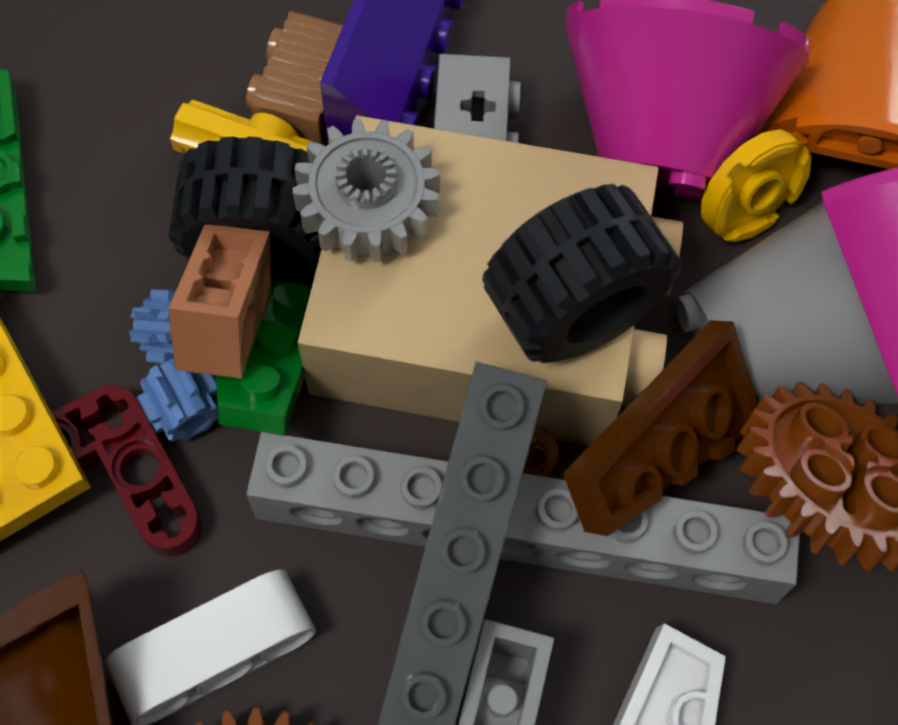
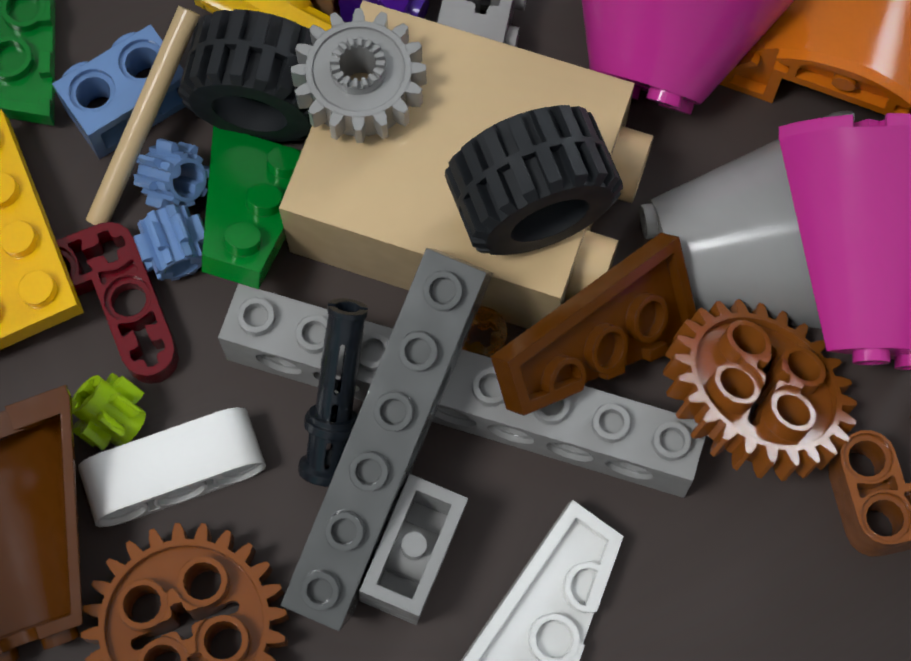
camera: 10 degrees right, 5 degrees up
(118, 255) = (114, 77): none -> medium blue brick
(131, 593) = (107, 411): none -> lime gear
(132, 267) = (143, 116): none -> tan piece
(221, 301) = (217, 160): nougat brick -> none
(386, 568) = (333, 413): none -> black pin
(754, 184) = (731, 107): yellow tile -> none

